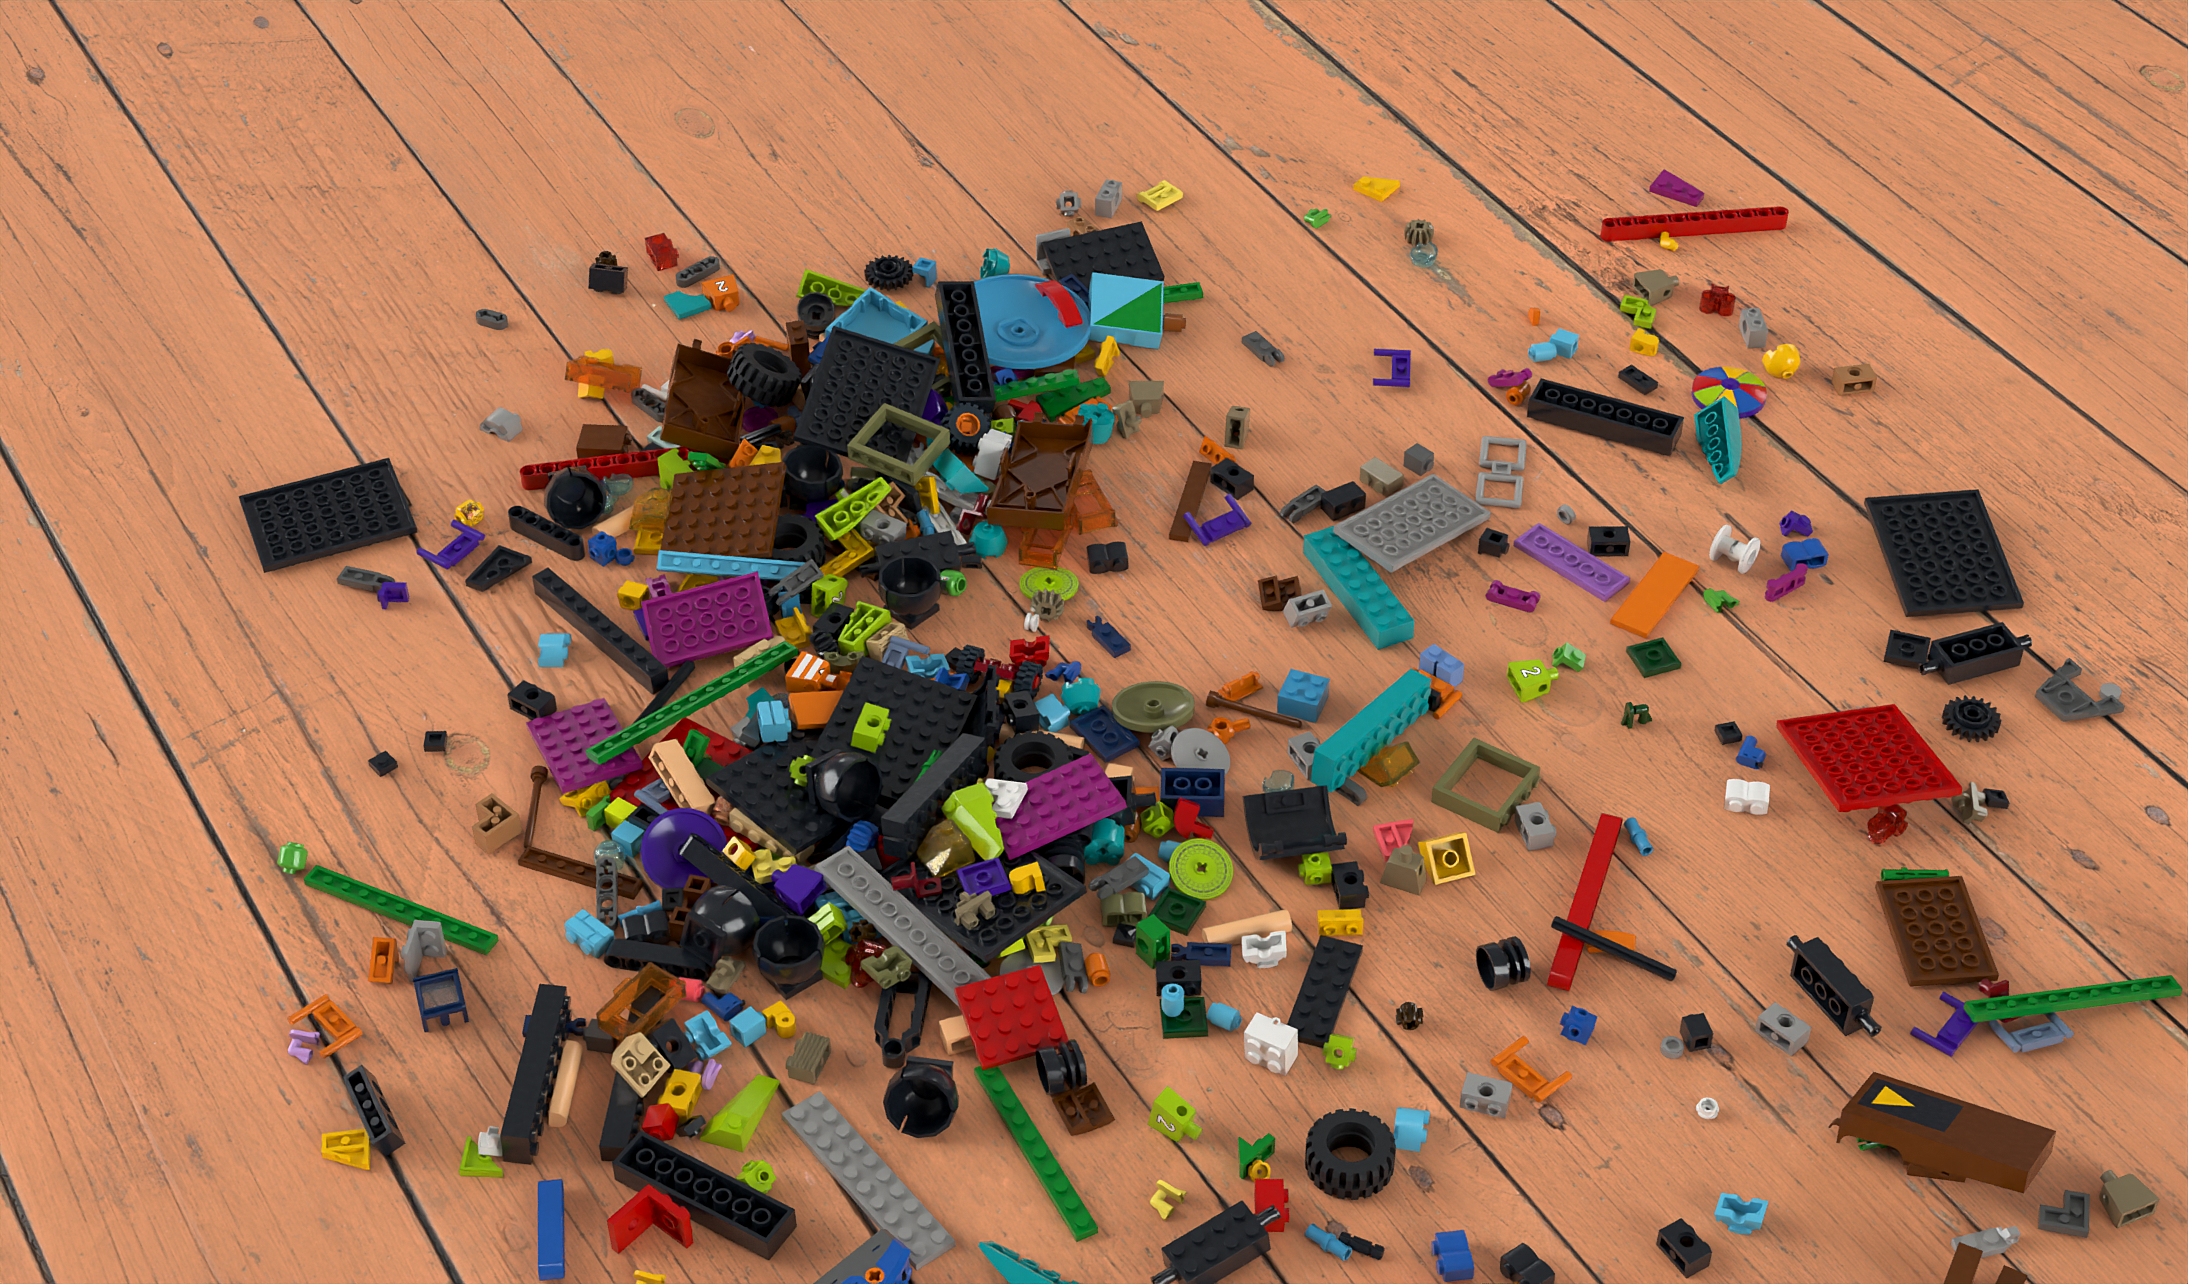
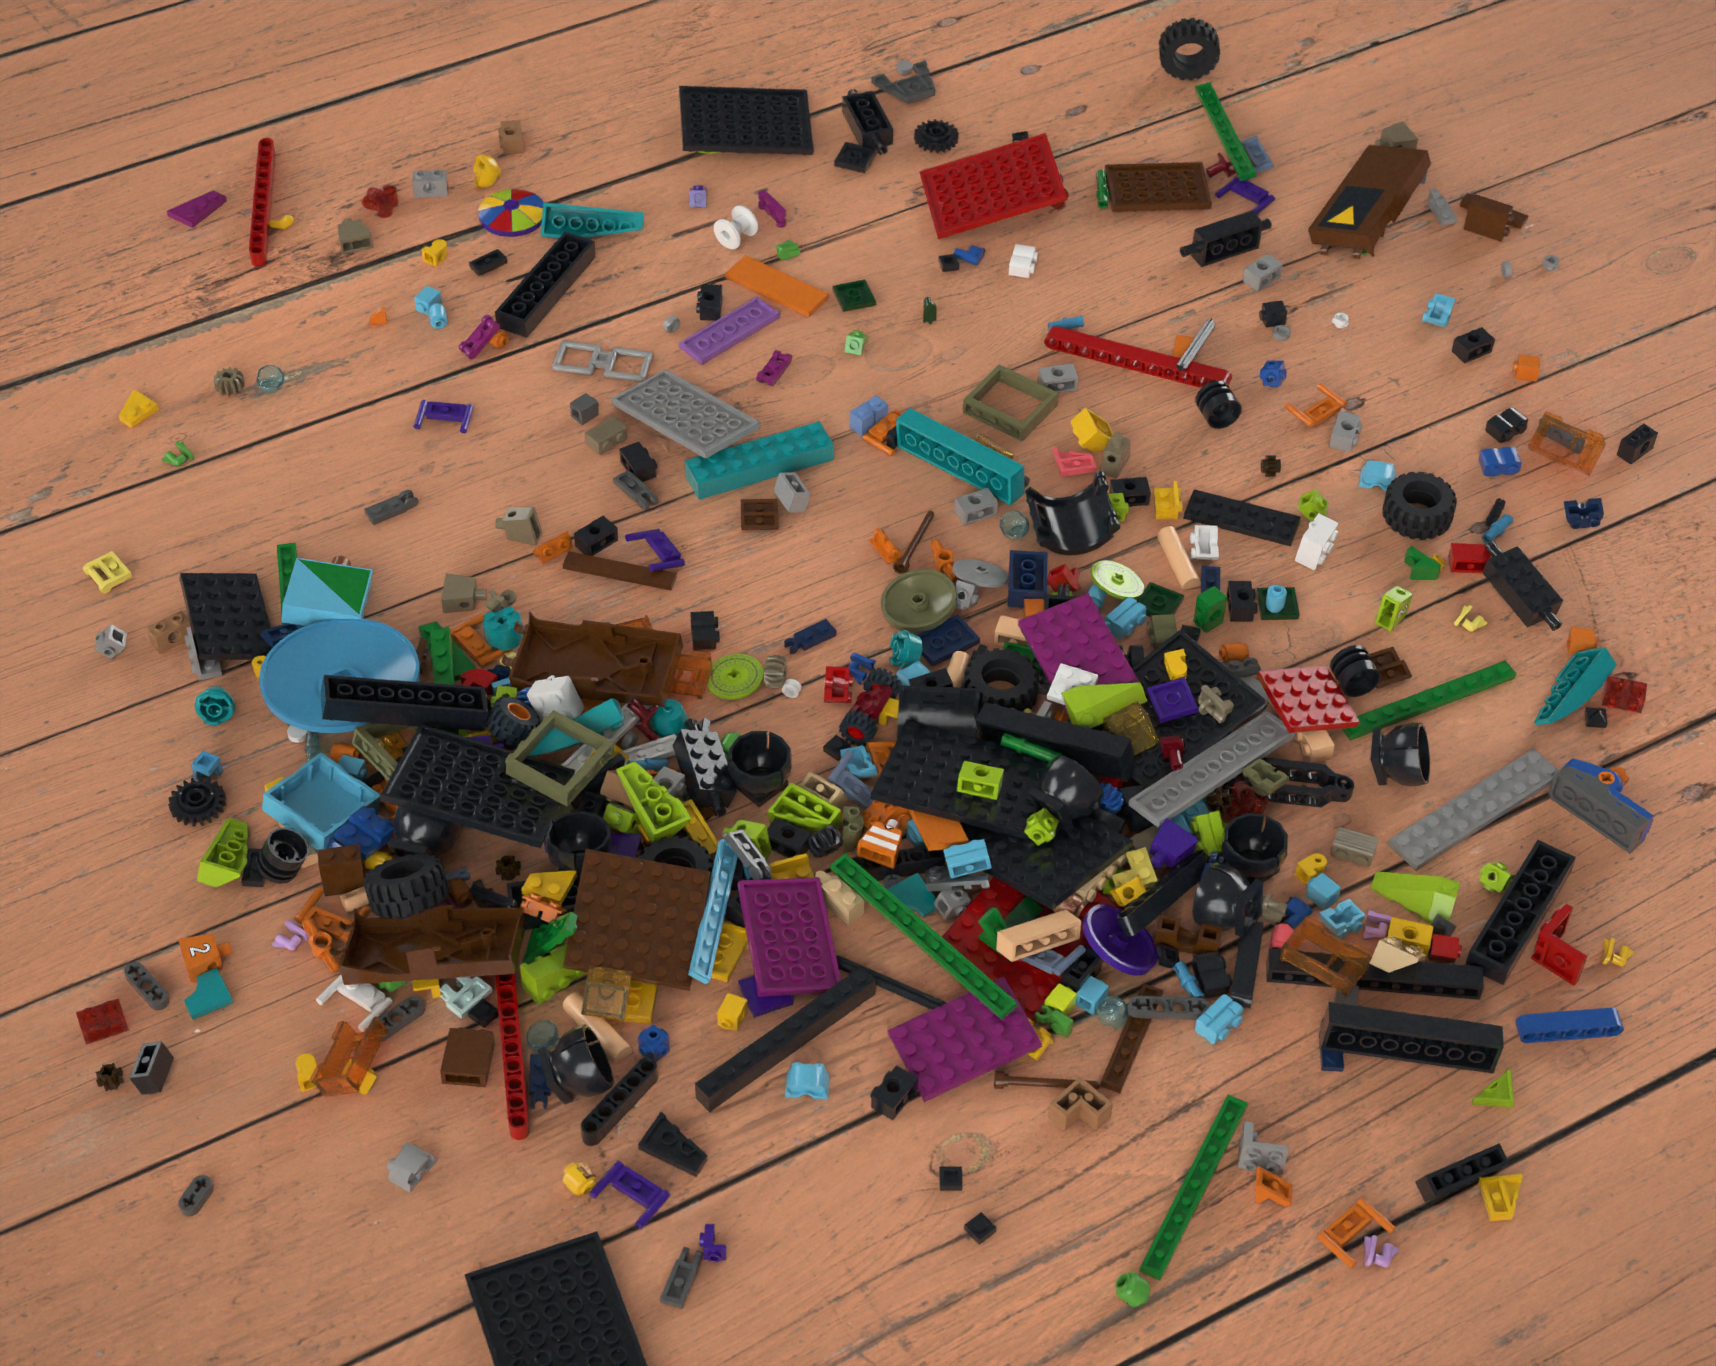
camera: 90 degrees left, 5 degrees up
(440, 996) = (1313, 1136): dark blue window -> none
(490, 1142) = (1482, 1078): white tile -> none
(624, 557) = (664, 1022): blue plate -> none
(658, 587) = (726, 985): magenta plate -> none
(681, 1052) = (1362, 935): black brick -> none
(957, 681) = (887, 738): blue bracket -> none
(1061, 299) = (317, 633): red slope -> none
(1104, 361) = (393, 617): yellow wing -> none
(1108, 198) = (107, 610): light grey brick -> none
(1119, 878) = (1141, 625): dark grey hinge -> none
(1224, 1016) = (1280, 574): medium azure brick -> none
(1303, 695) = (902, 504): dark azure brick -> none
(1493, 543) = (707, 371): black brick -> none
(1530, 678) = (884, 365): lime torso -> none
(1644, 312) = (394, 247): lime plate -> none
(1807, 552) = (737, 194): blue brick -> none

